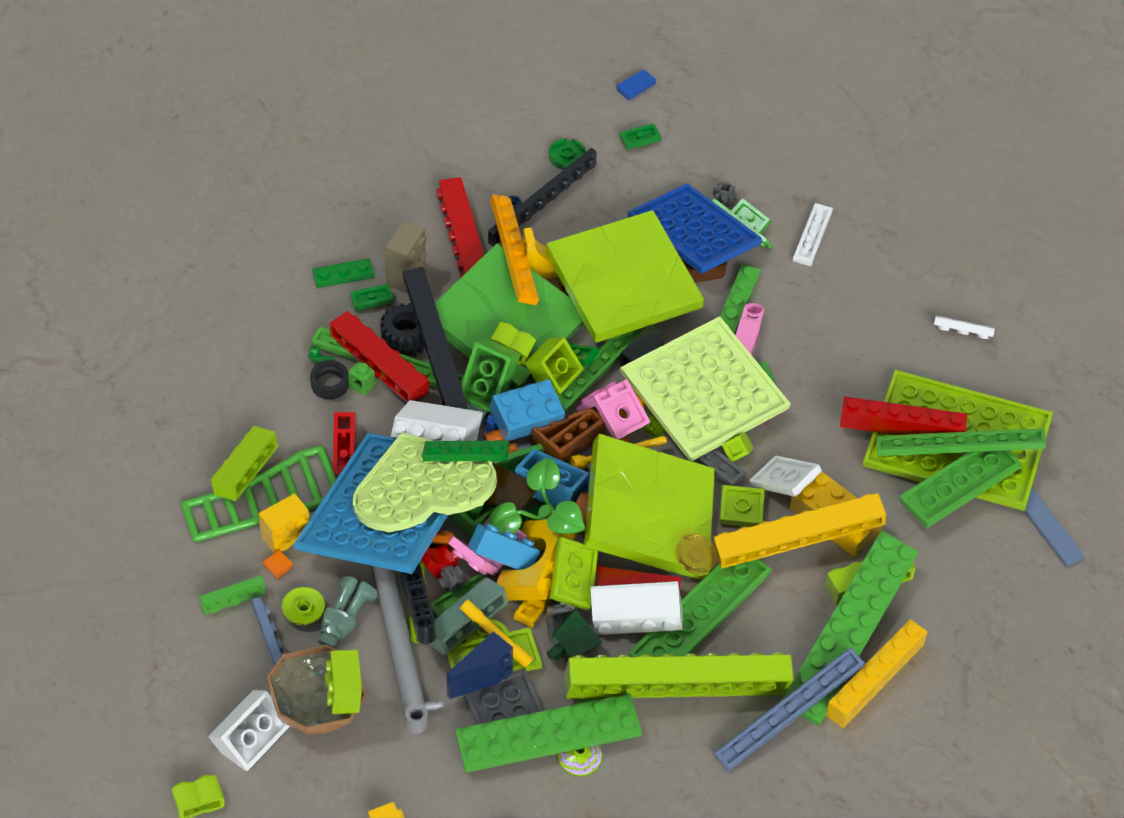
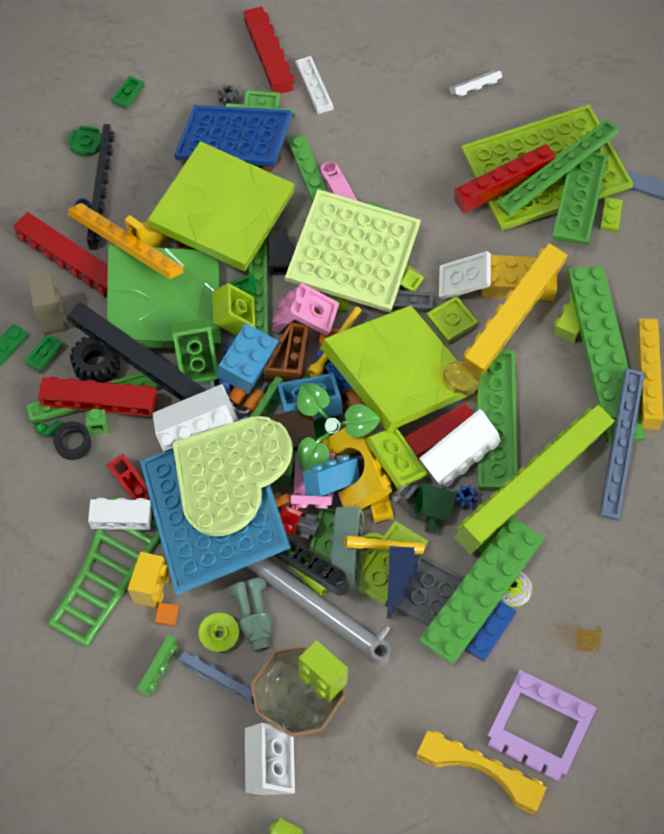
camera: 35 degrees left, 10 degrees up
(244, 463) = (71, 555): lime brick -> none
(311, 459) = (120, 514): none -> white brick
(466, 450) = (240, 422): green plate -> none
(516, 340) = (189, 311): lime brick -> none
(527, 774) = (491, 631): none -> blue plate
(609, 649) = (466, 502): none -> blue gear
(636, 84) = (87, 54): blue tile -> none
(797, 179) = (268, 50): none -> red brick
(982, 522) = (611, 214): none -> lime plate

